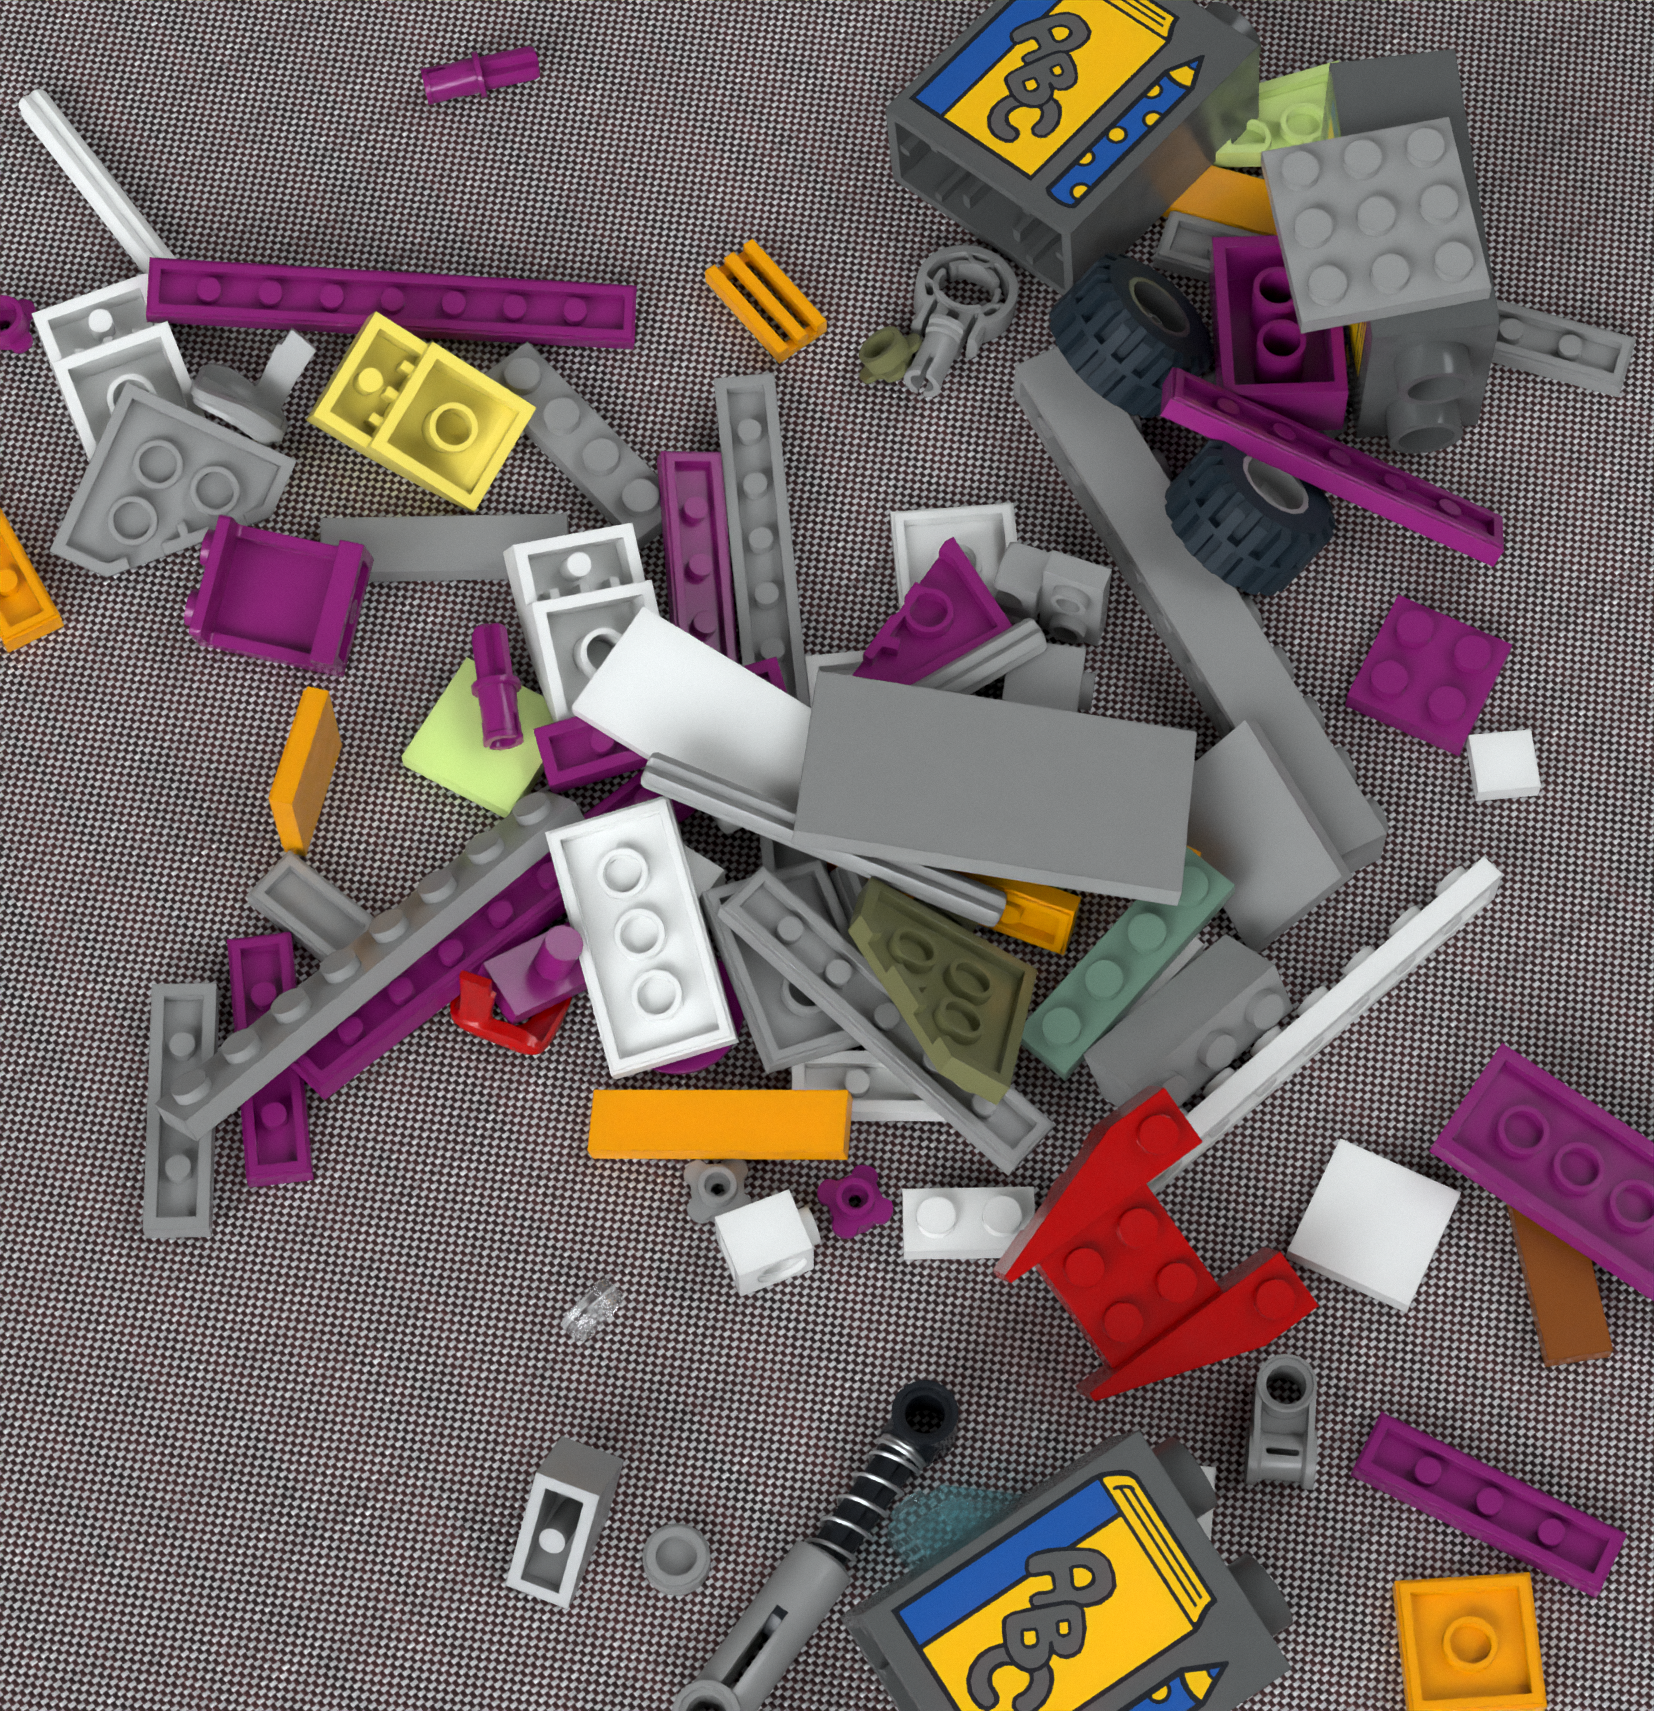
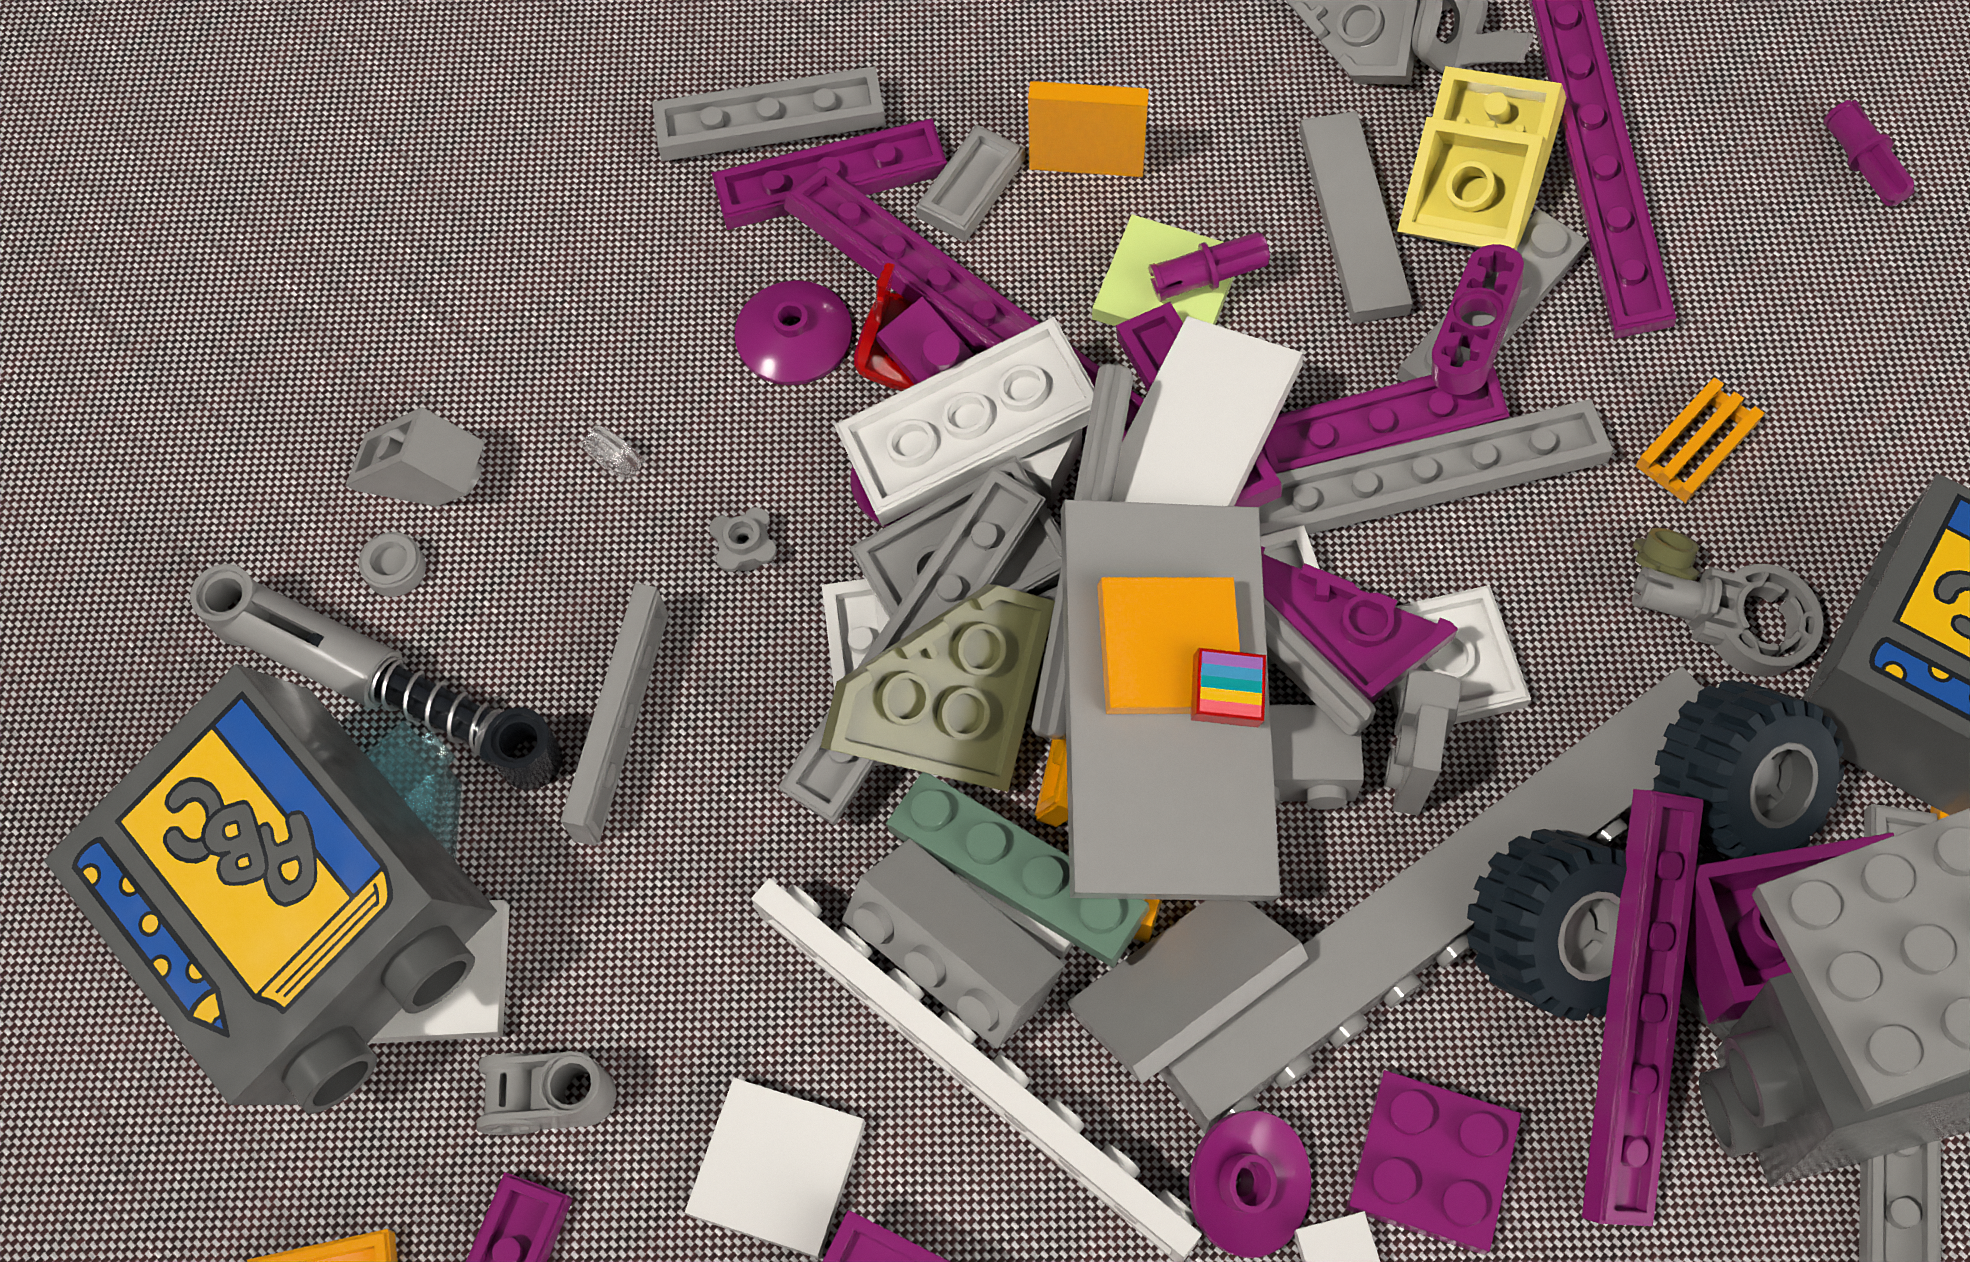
camera: 85 degrees right, 0 degrees up
(278, 597) = (1266, 88): magenta panel -> none
(366, 966) = (929, 225): light grey plate -> none
(472, 1148) = (798, 351): none -> magenta dish
(575, 605) = (1319, 310): white slope -> none
(630, 474) = (1481, 340): none -> magenta beam
(720, 1124) = (800, 529): light orange tile -> none
(767, 1241) = (690, 584): white brick -> none
(850, 1220) = (749, 676): magenta plate -> none
(899, 1326) = (615, 716): none -> light grey tile
(957, 766) = (1151, 636): none -> light orange tile
(963, 1221) = (737, 768): white plate -> none
(1014, 720) = (1228, 687): none -> tile
(1132, 1272) = (672, 919): red wedge -> none
(1438, 817) = (1271, 1189): none -> magenta dish

